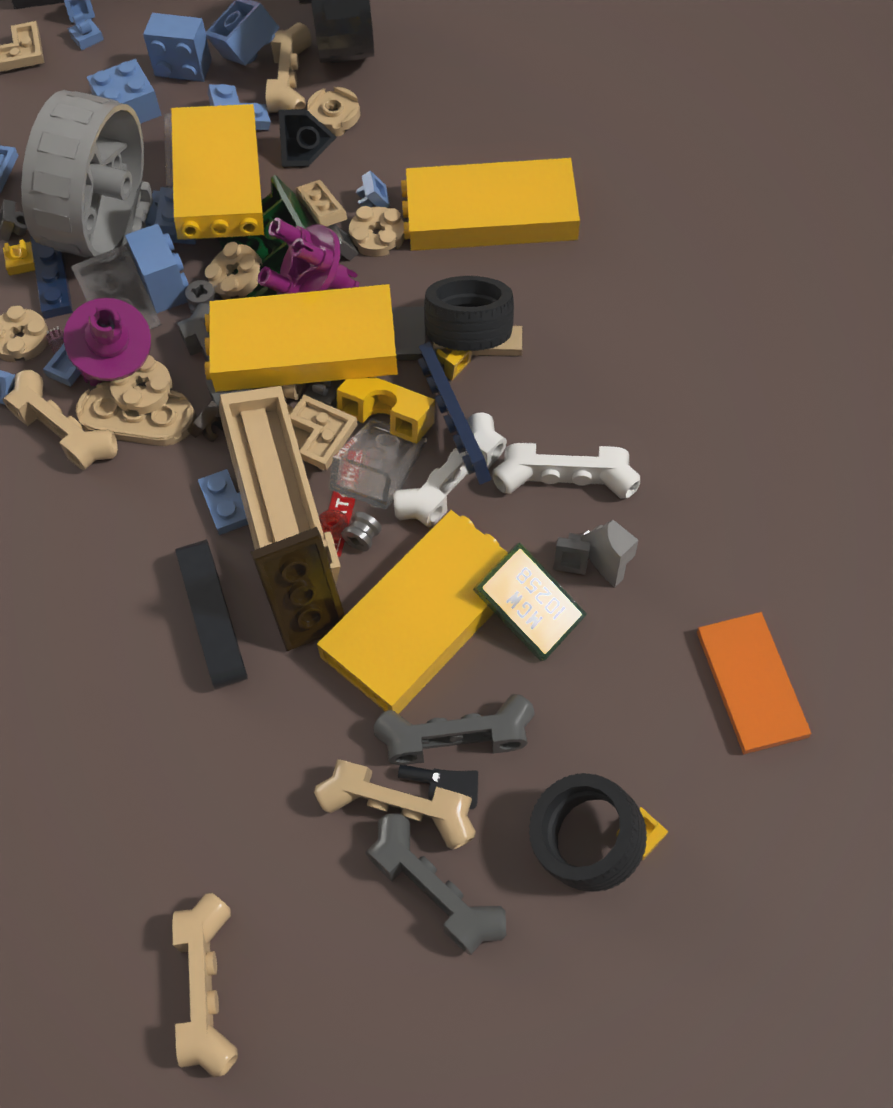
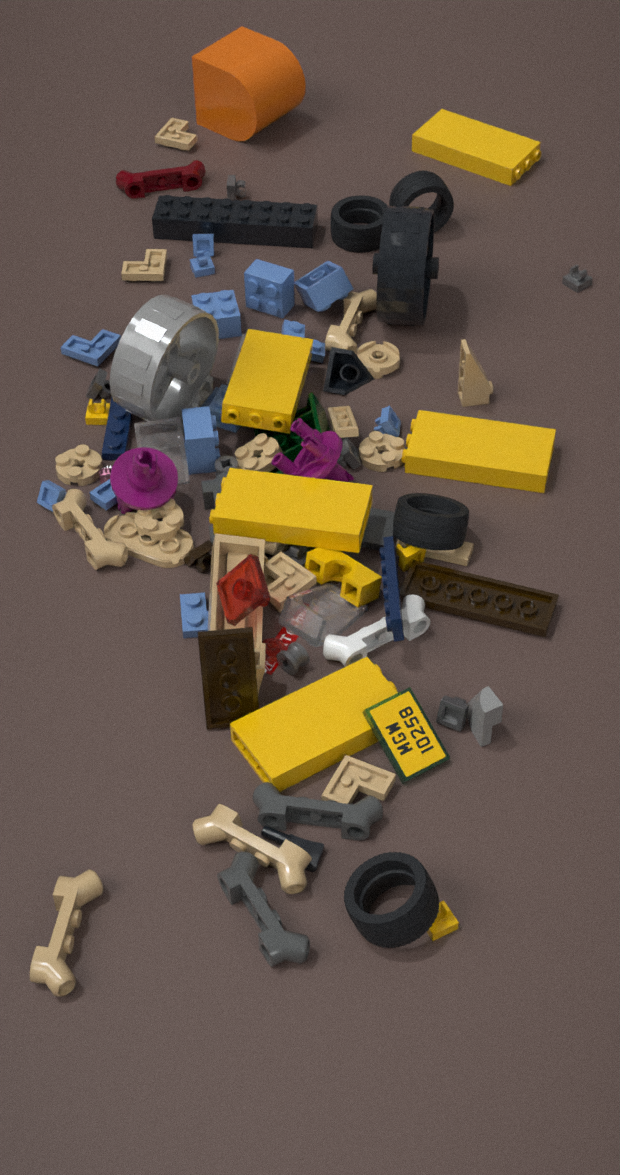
camera: 15 degrees right, 15 degrees down
(211, 614) = (157, 688): black beam -> none
(281, 466) = (243, 590): none -> clear red tile
(456, 120) = (472, 381): none -> tan slope
(489, 669) = (355, 777): none -> tan plate
(525, 465) = (439, 641): white plate -> none
(553, 394) = (481, 598): none -> dark brown plate
(753, 683) = (567, 839): orange tile -> none

